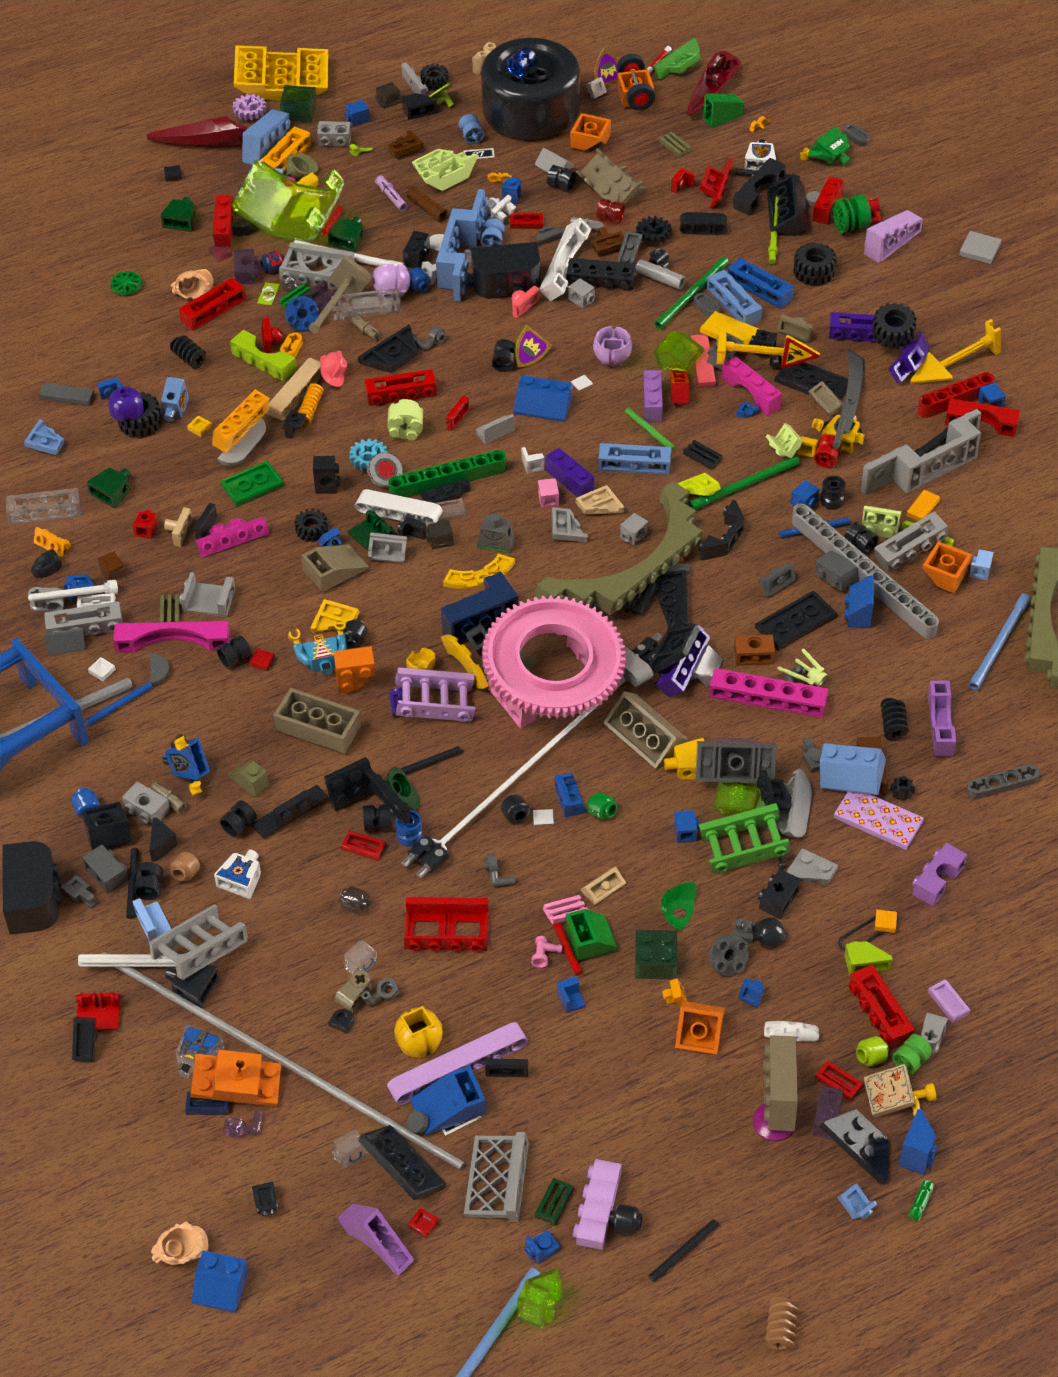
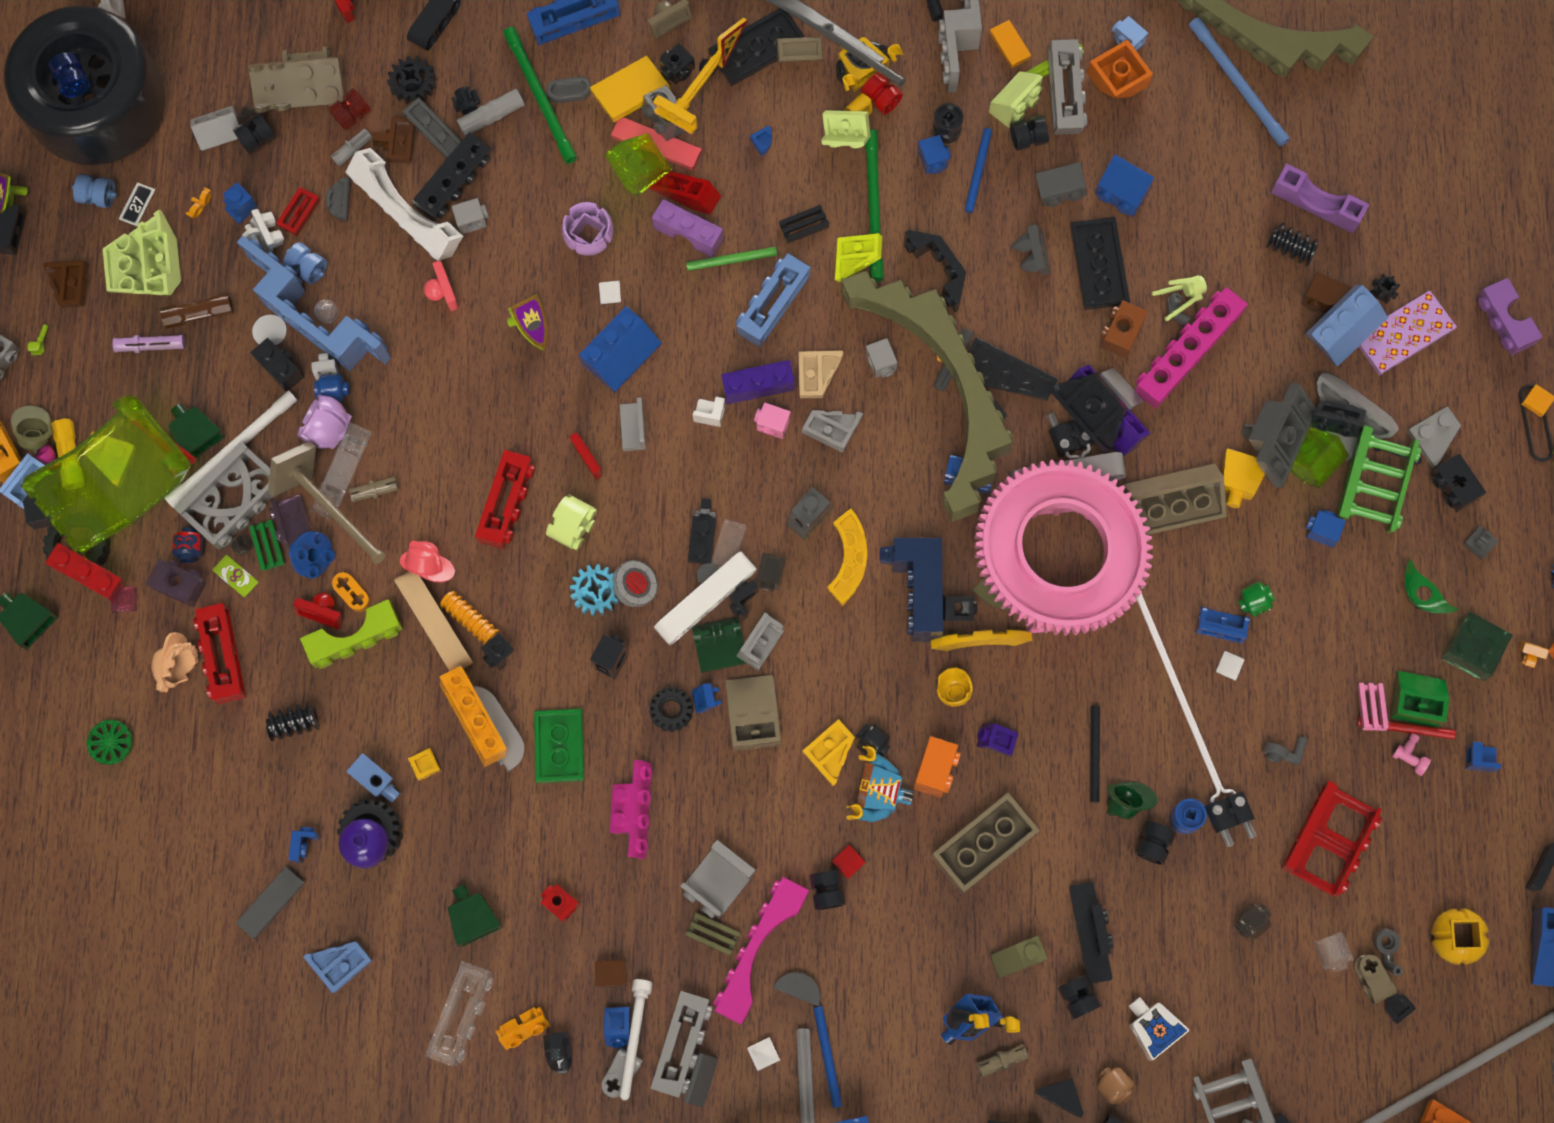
camera: 60 degrees left, 25 degrees up
(95, 599) = (662, 996): white tile -> none
(145, 803) = (987, 1092): light grey brick -> none
(179, 527) = (587, 864): tan tile -> none
(205, 521) = (597, 830): black tile -> none
(360, 781) = (1102, 845): black bracket -> none
(361, 848) = (1161, 888): red tile -> none
(392, 351) = (436, 478): black wing -> none
(436, 336) = (442, 415): dark grey plate -> none
(436, 680) = (994, 699): lavender fence -> none
(468, 468) = (677, 506): green beam -> none
(491, 1046) = (1514, 915): lavender beam -> none
(504, 355) = (527, 358): black wheel -> none
(505, 269) = (385, 281): black brick -> none
(515, 809) = (1215, 690): black head -> none
(589, 131) = (196, 58): orange slope -> none
(603, 885) = (1353, 651): tan slope -> none
(729, 955) = (1512, 576): dark grey plate -> none
(734, 298) = (581, 55): medium blue brick -> none
(765, 395) = (754, 109): dark pink arch -> none
(769, 932) = (1500, 520): black hair -> none
(811, 756) = (1297, 350): dark grey plate -> none
(885, 588) = (1085, 150): light grey beam -> none
(1001, 779) = (1420, 188): dark grey beam -> none

